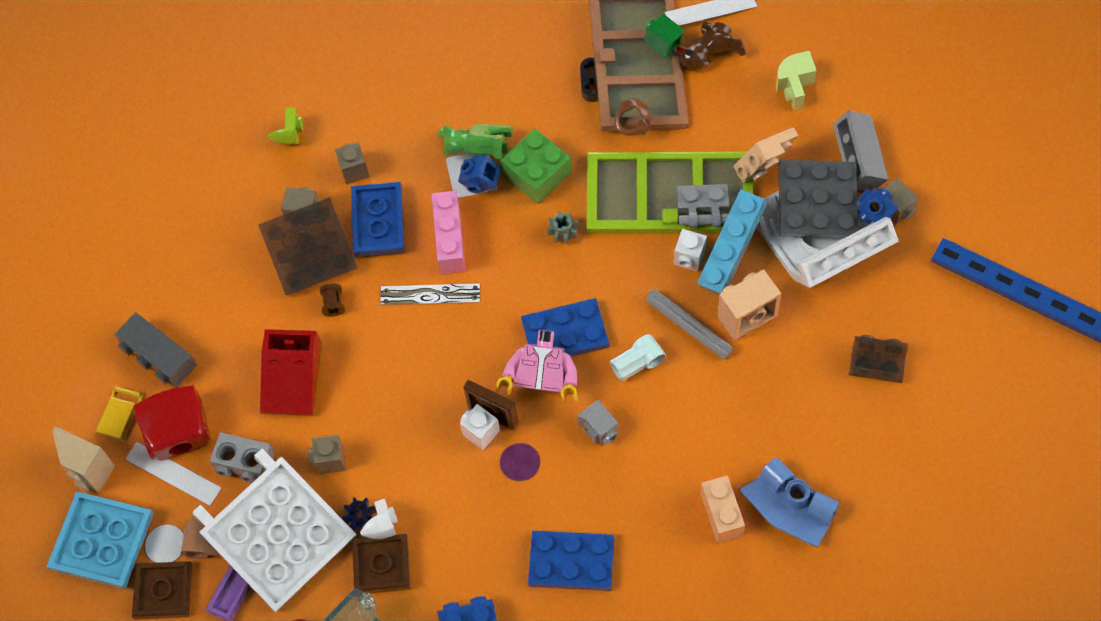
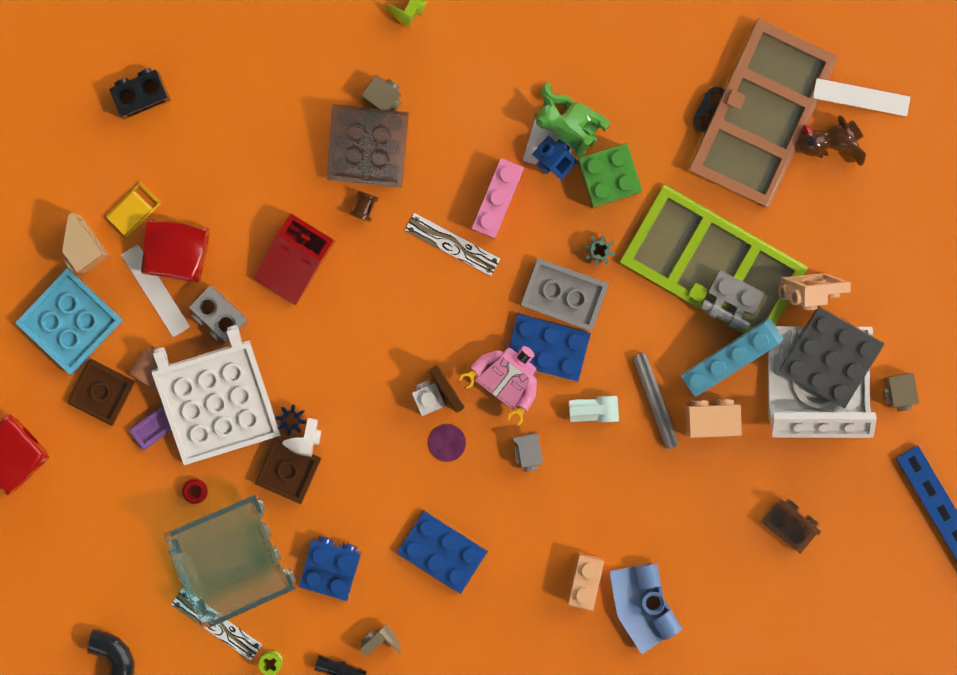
camera: 20 degrees right, 25 degrees up
(83, 316) = (141, 100): none -> black brick
(155, 350) = (188, 170): dark grey brick -> none
(164, 544) = (121, 351): white sticker -> none
(327, 454) = (290, 352): dark tan brick -> none
(352, 163) = (448, 77): dark tan brick -> none
(377, 219) = (443, 147): blue plate -> none
(553, 279) = (564, 294): none -> light grey plate
(643, 125) = (732, 179): dark orange piece -> none
(663, 35) = (798, 108): green brick -> none
(690, 250) = (695, 336): white brick -> none
(794, 74) = (888, 212): yellowish green brick -> none
(860, 144) = (901, 325): light grey brick -> none
(881, 196) = (876, 394): blue brick -> none

